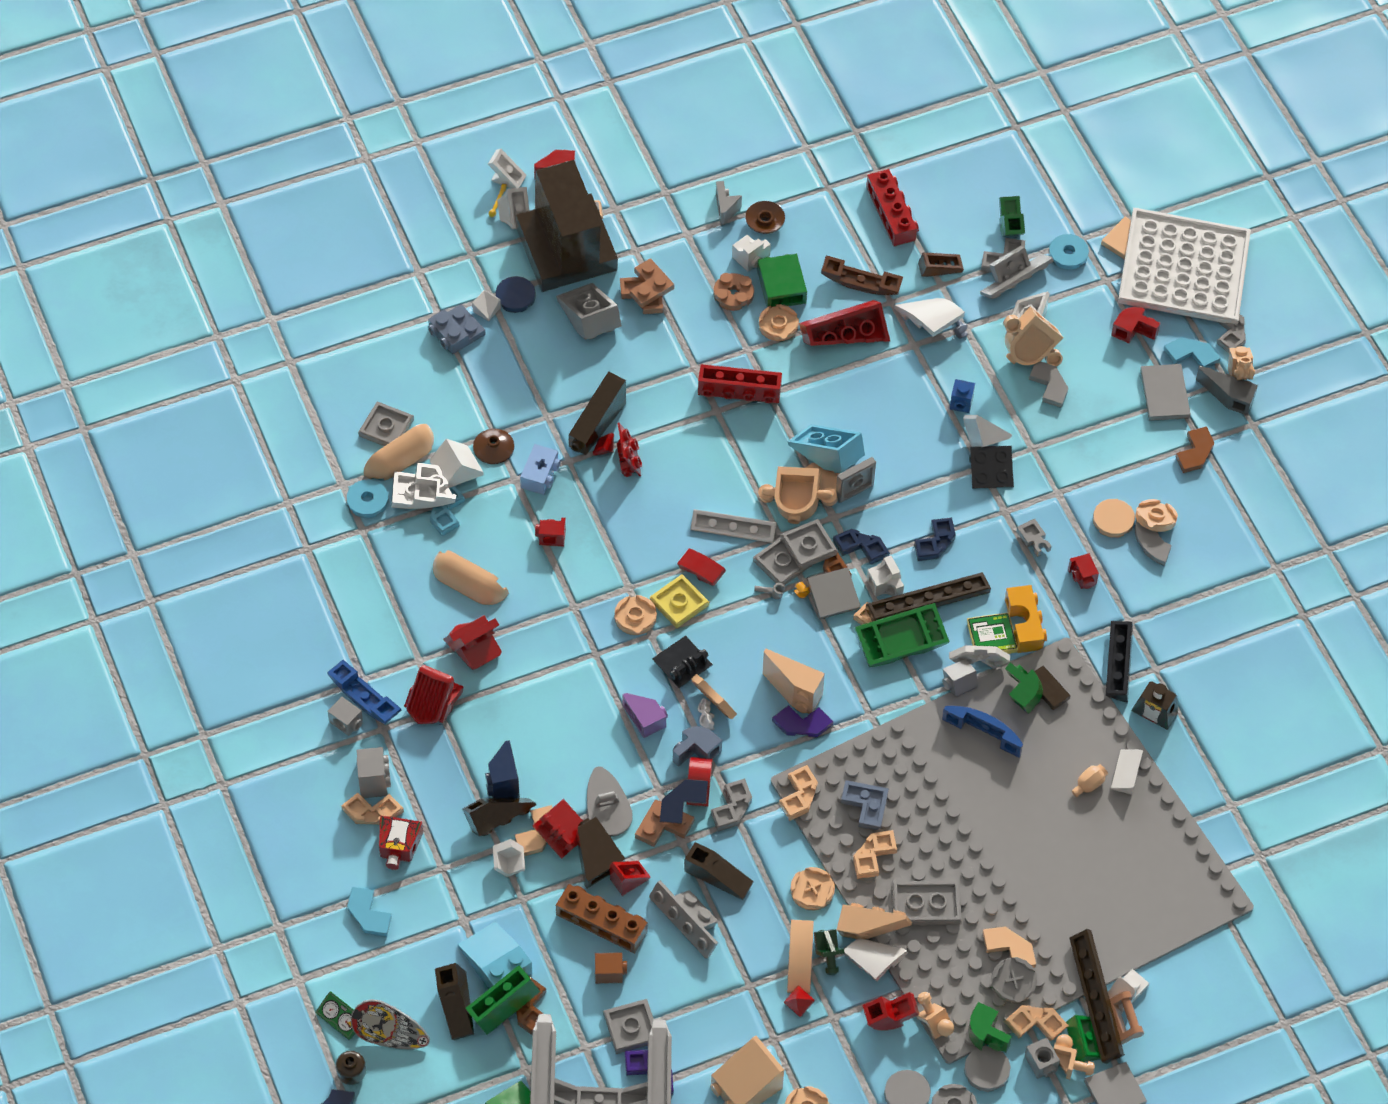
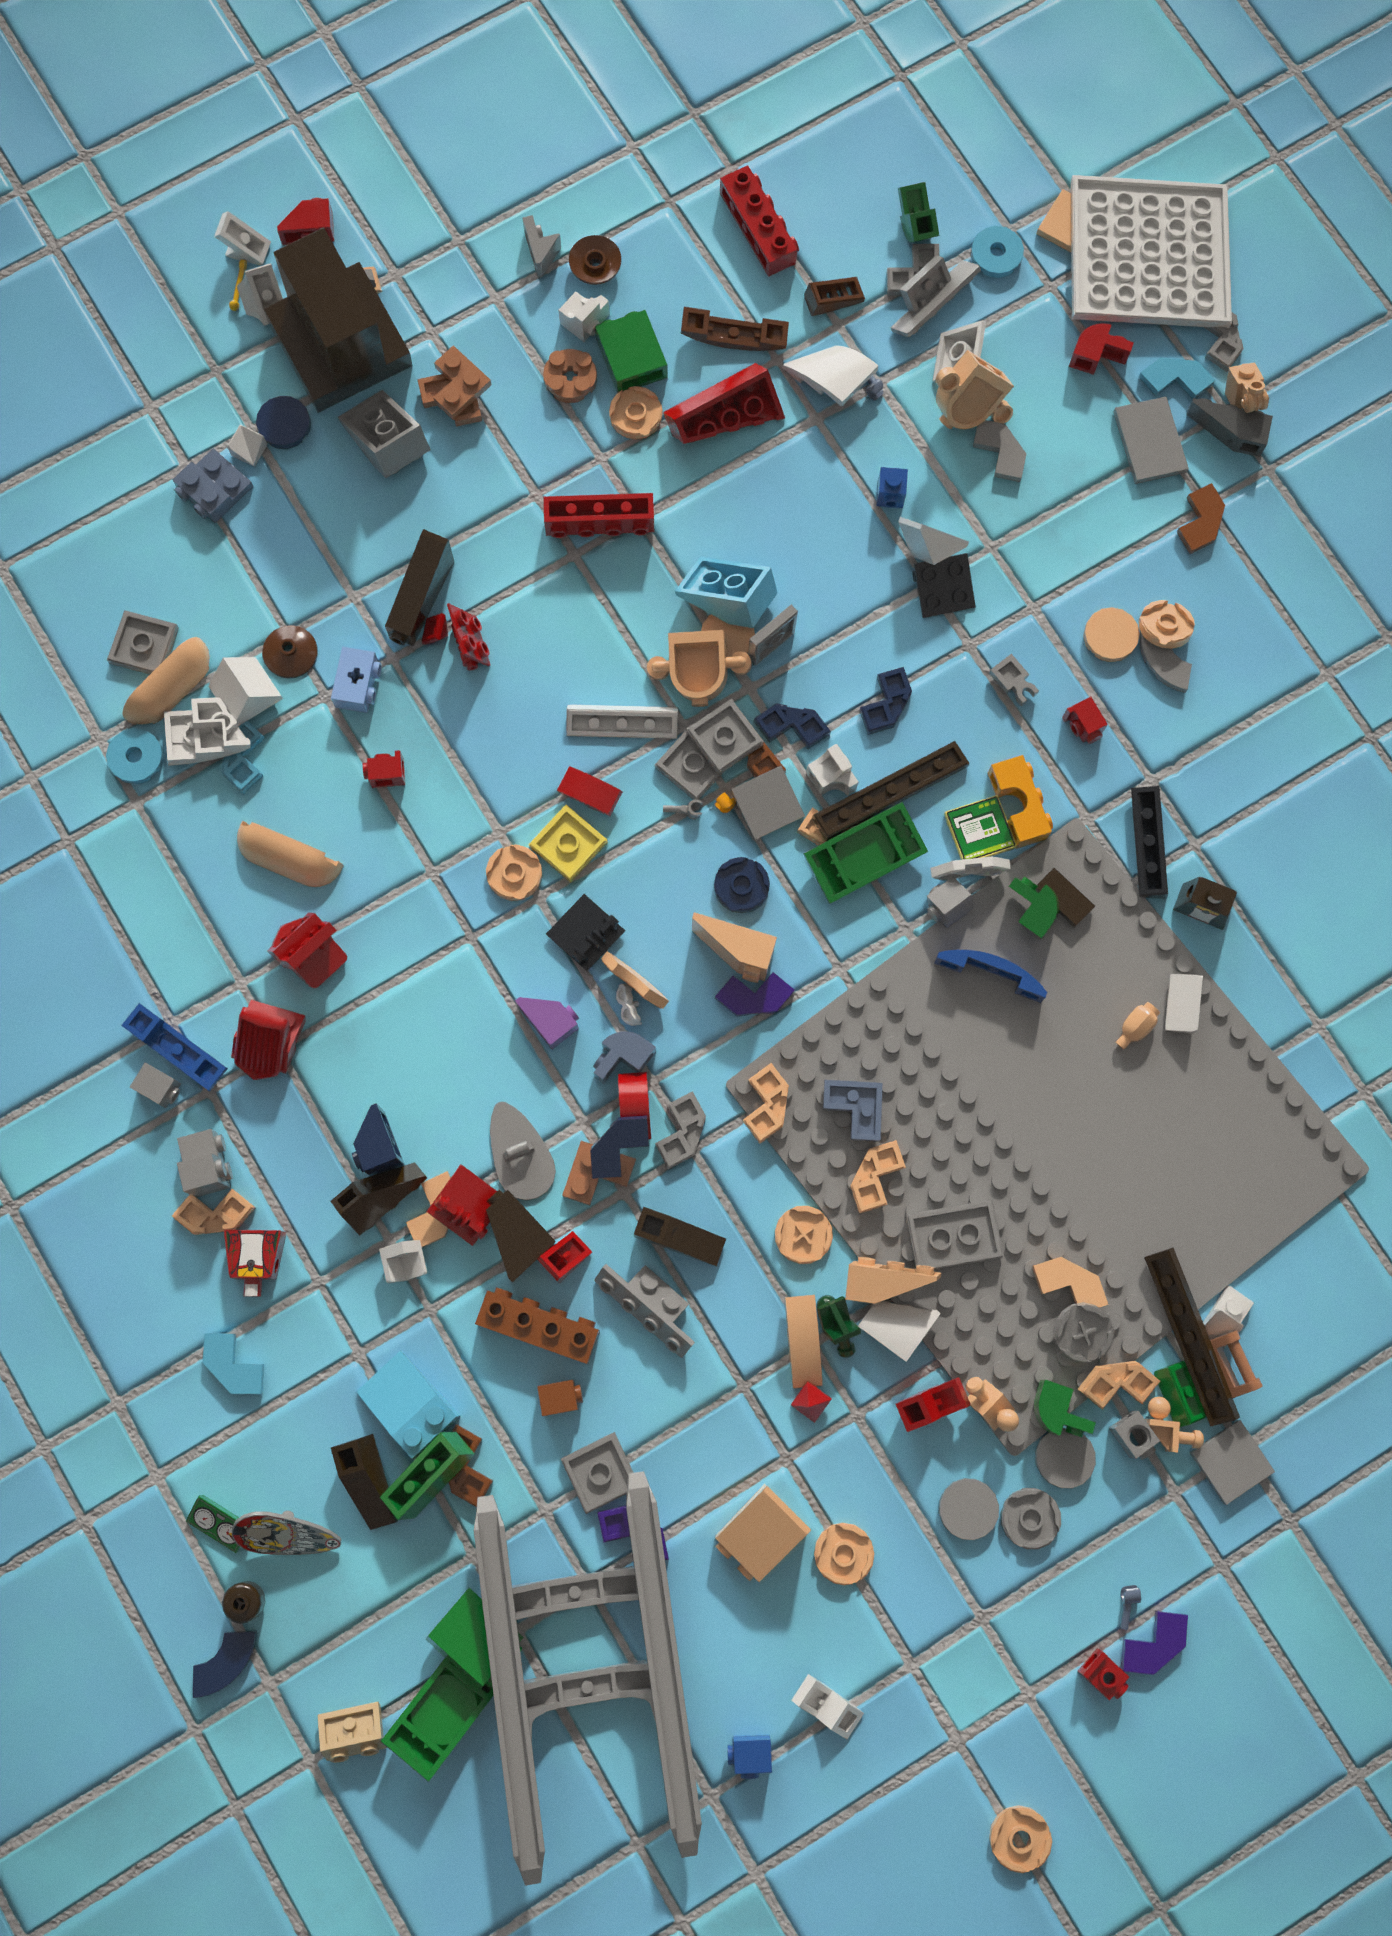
camera: 10 degrees left, 20 degrees up
(805, 646) = (741, 885): none -> dark blue tile

